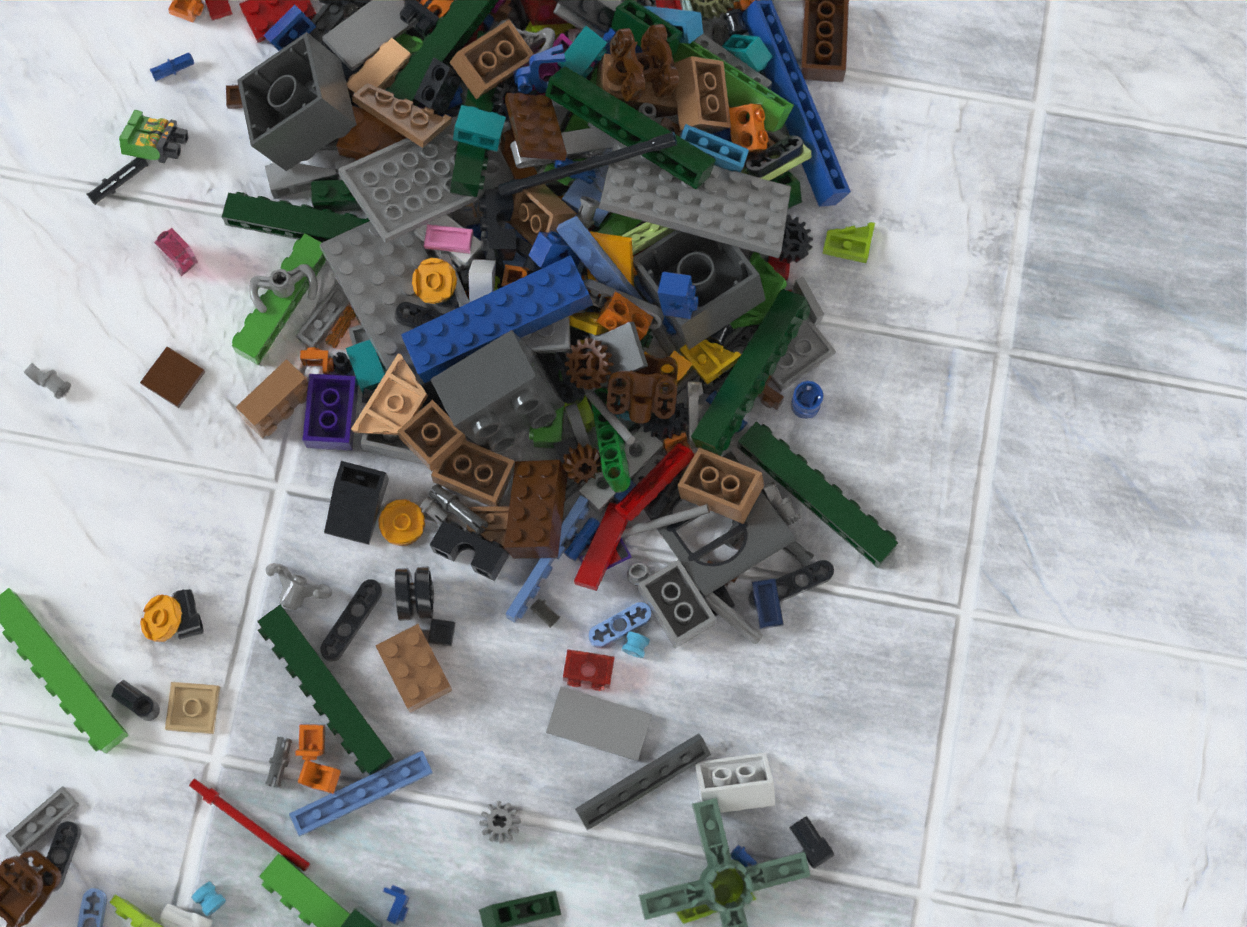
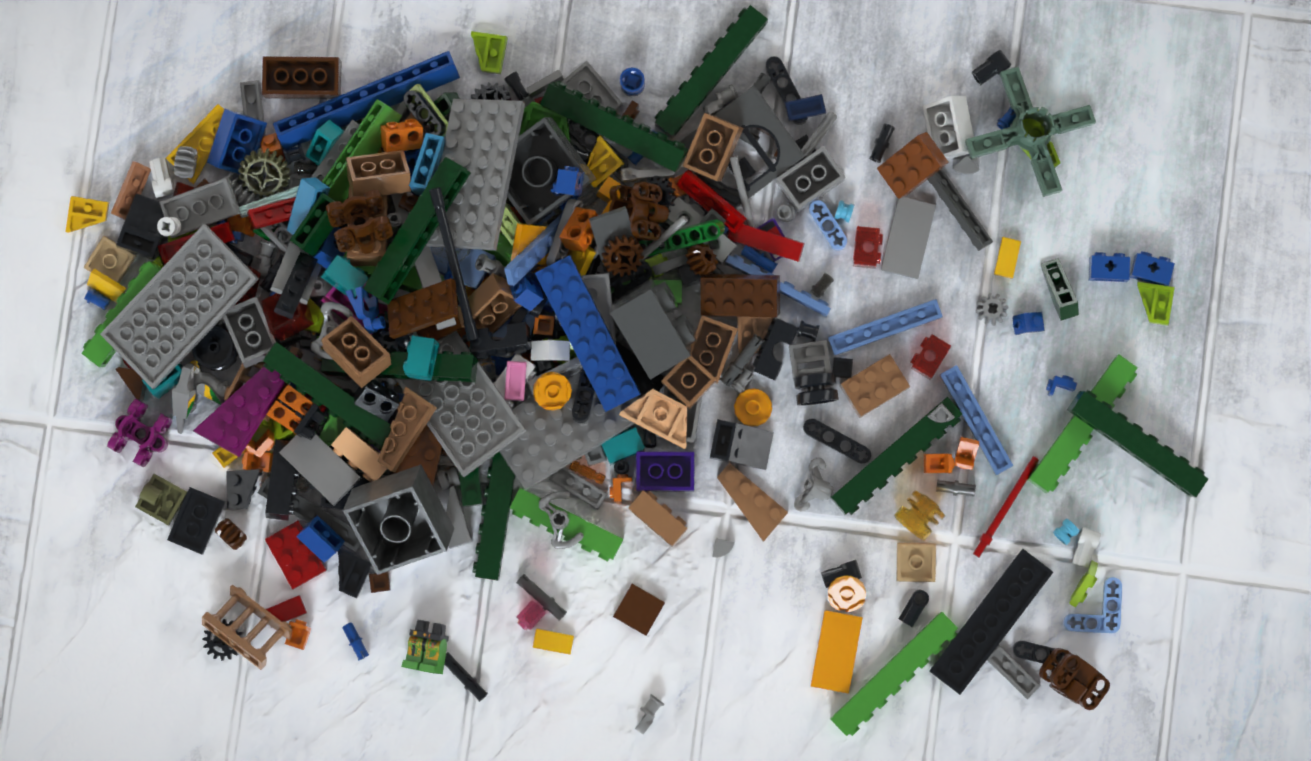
camera: 85 degrees left, 10 degrees up
(94, 604) = (836, 651): none -> light orange tile
(107, 796) = (991, 621): none -> black plate
(146, 279) = (553, 641): none -> yellow tile
(198, 268) = (538, 594): none -> dark grey pin
(235, 476) = (722, 547): none -> light grey tile
(240, 62) = (352, 573): none -> black wing
(244, 709) = (919, 515): none -> clear yellow wheel
(286, 516) = (755, 504): none -> medium nougat wing
(368, 745) = (941, 414): none -> light grey tile
(453, 752) = (938, 348): none -> clear red brick
(462, 592) = (809, 353): none -> light grey plate
(479, 868) = (1028, 323): none -> blue bracket
(487, 687) = (885, 327): none -> medium blue plate
(489, 592) = (808, 331): none -> black bush
(565, 847) = (1007, 257): none -> yellow tile
(636, 482) = (712, 215): none -> dark grey tile
(684, 802) = (966, 166): none -> light grey tile
(687, 729) = (912, 165): none -> dark orange brick
(696, 529) = (746, 169): none -> black tile
(719, 697) = (882, 143): none -> black pin
(809, 269) = (514, 81): none -> black pin

